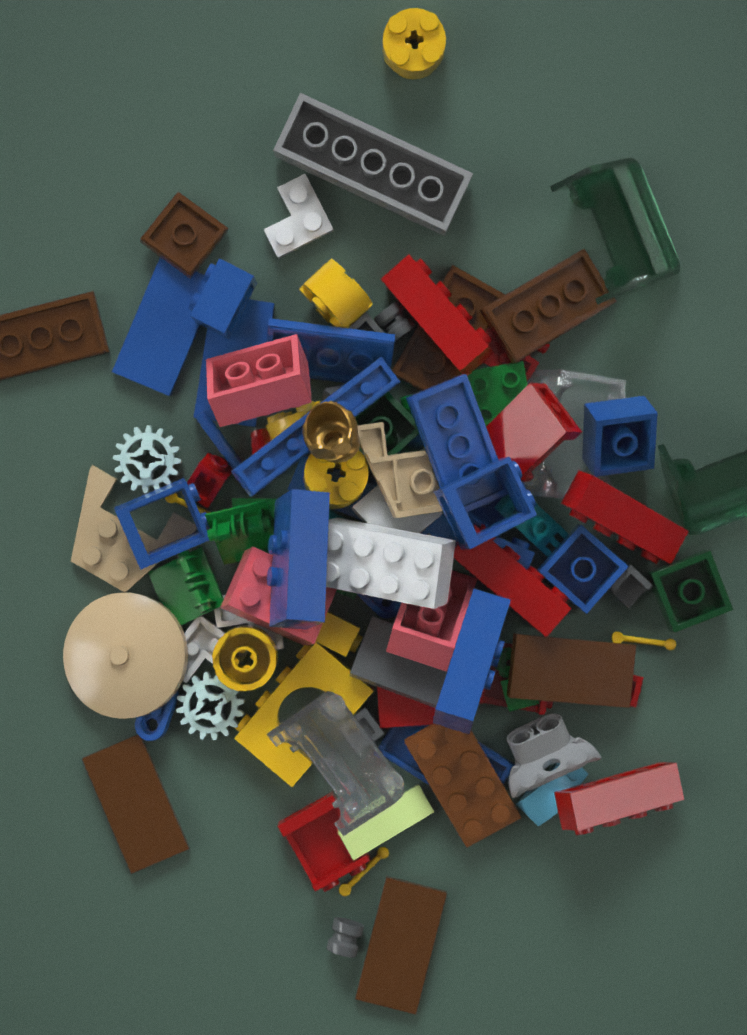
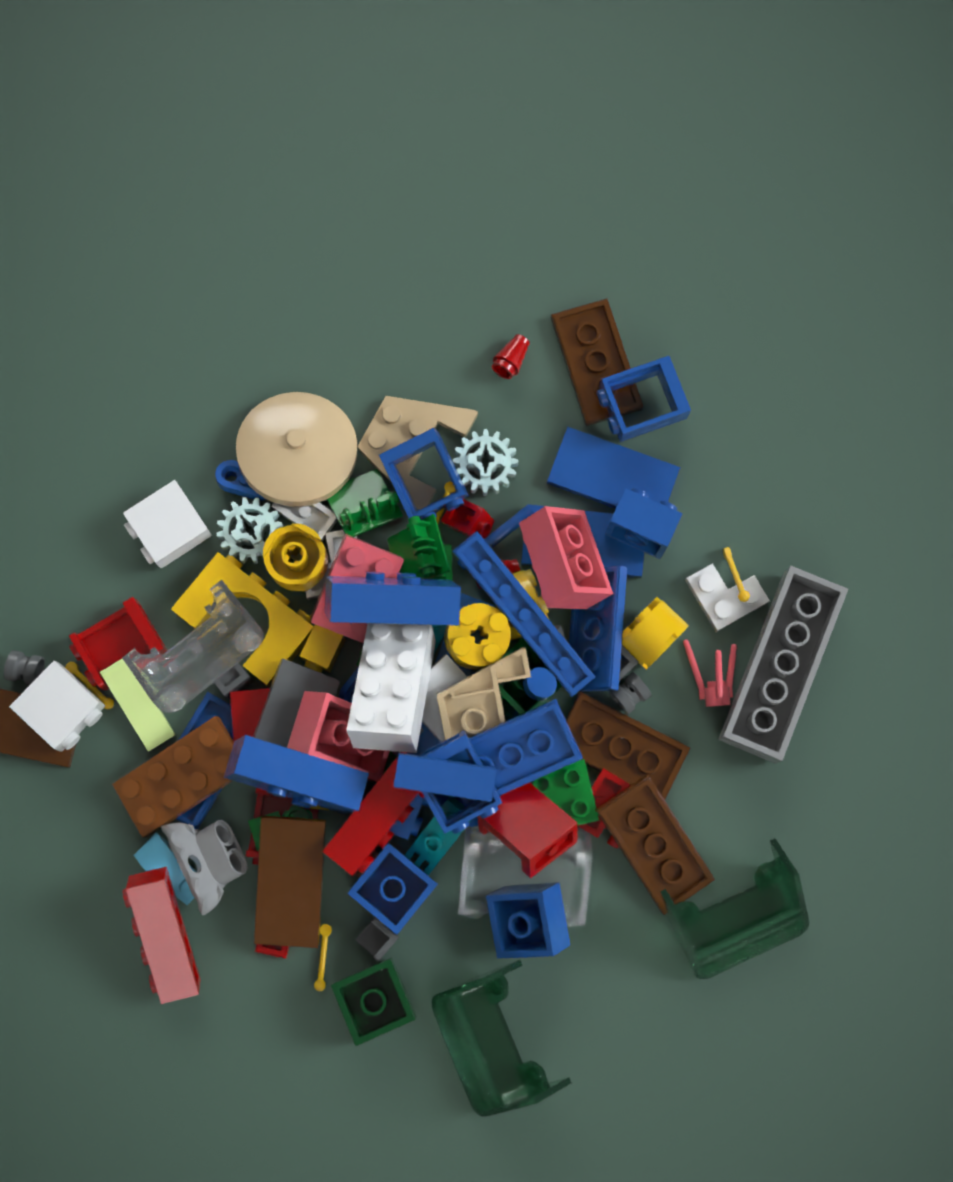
camera: 90 degrees right, 10 degrees down
(33, 427) = (510, 357): none -> red cone
(76, 260) = (672, 389): none -> blue window
(135, 803) = (144, 466): reddish brown tile -> none
(184, 235) = (702, 488): reddish brown tile -> none
(202, 792) = (166, 525): none -> white brick
(299, 200) = (743, 595): none -> yellow hinge
(331, 432) = (517, 624): pearl gold hair -> none
(387, 411) = (540, 684): none -> blue tile
(388, 901) = (58, 707): none -> white brick
(396, 233) = (719, 691): none -> coral plant
(428, 32) = (912, 684): yellow brick -> none
(437, 315) = (638, 733): red brick -> none
(483, 512) = (445, 777): none -> blue tile
(625, 517) = (446, 929): red brick -> none

